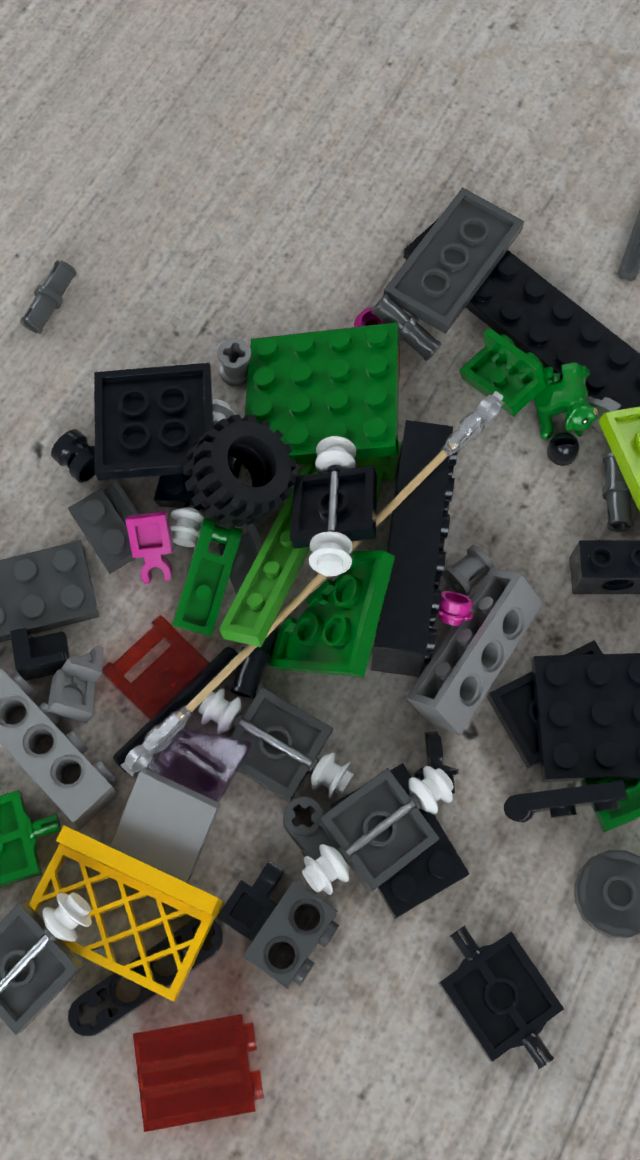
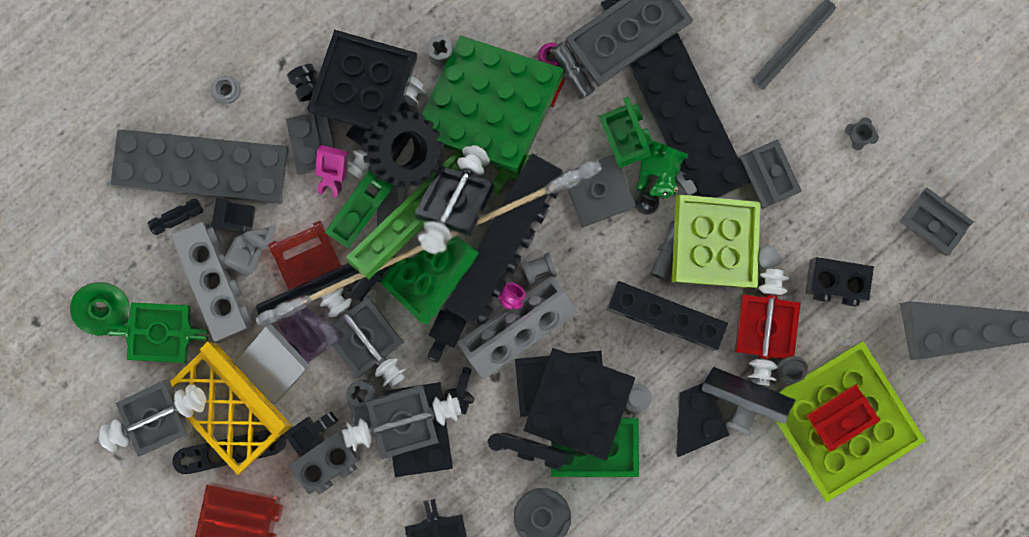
camera: 30 degrees right, 15 degrees up
(382, 696) = (446, 331): none -> black plate
(502, 458) = (602, 194): none -> dark grey plate

